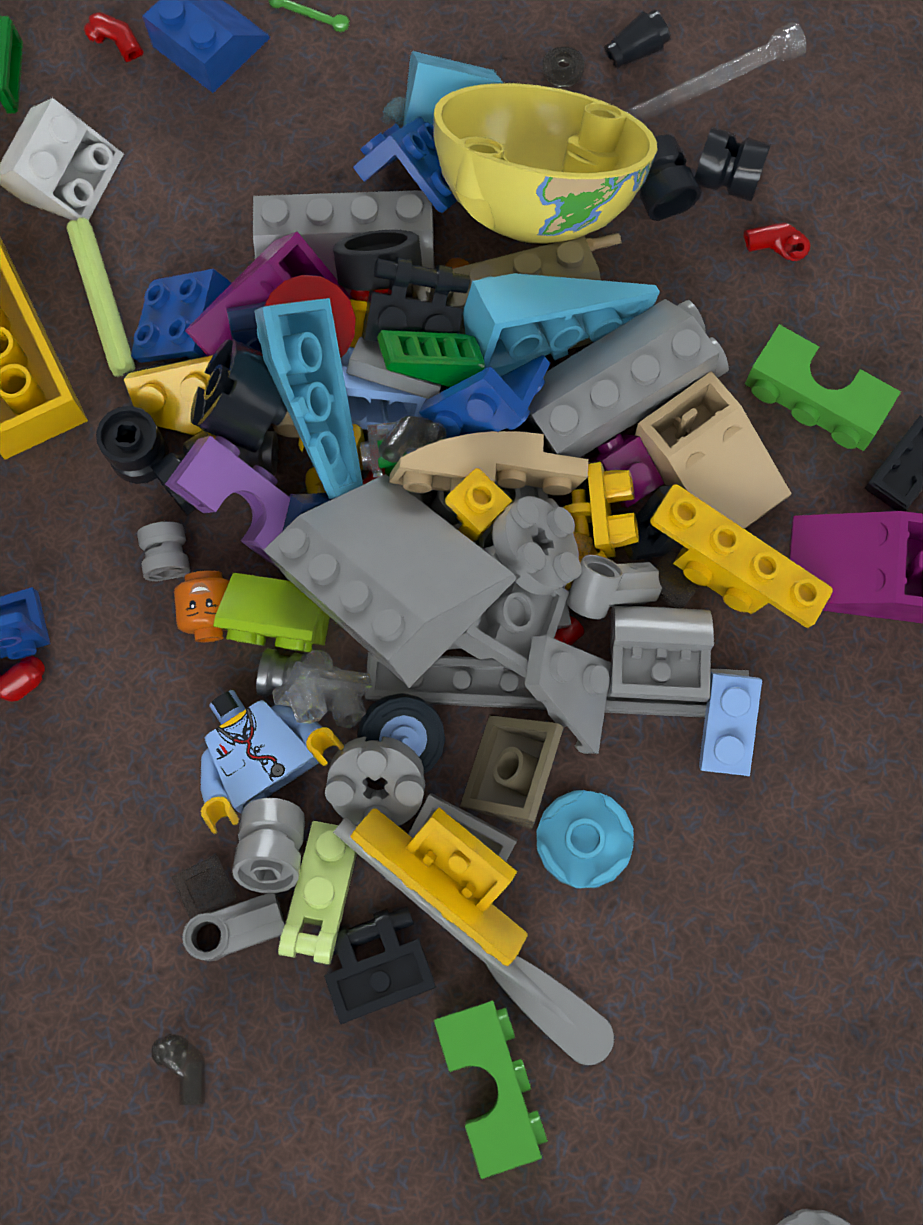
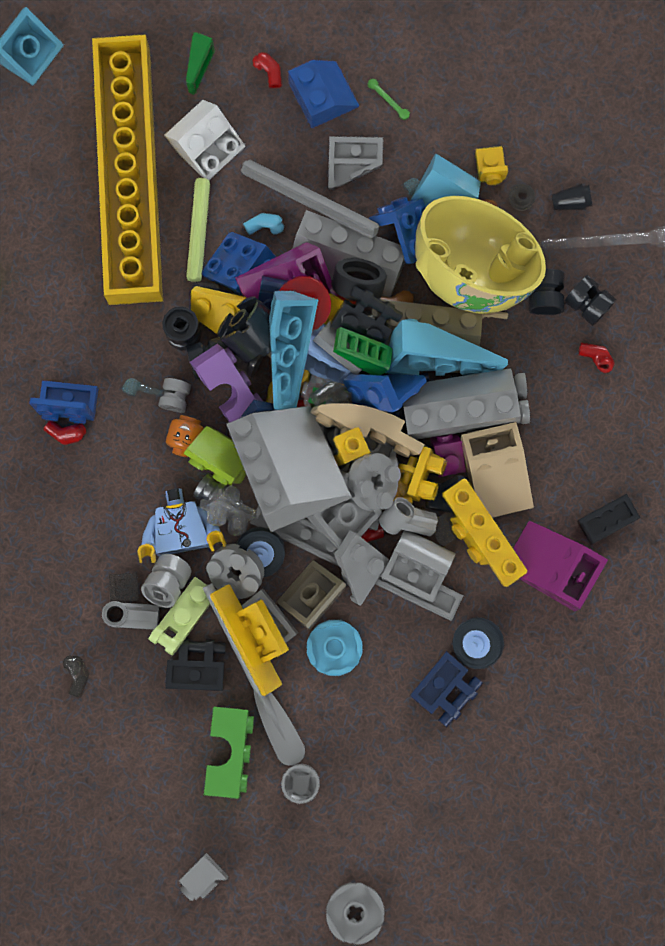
camera: 20 degrees right, 5 degrees up
(91, 565) = (132, 386): none -> clear light blue hand
(196, 244) = (265, 220): none -> medium azure arm
(254, 180) = (310, 199): none -> light grey axle
(292, 107) = (353, 158): none -> light grey wing
(499, 41) = (491, 165): none -> yellow bracket
(632, 1086) = (300, 783): none -> light grey wheel
(730, 724) = (439, 620): light blue plate -> none
(776, 824) = (439, 683): none -> dark blue plate
(808, 733) = (478, 643): none -> black wheel
(848, 413) = (588, 476): bright green arch -> none

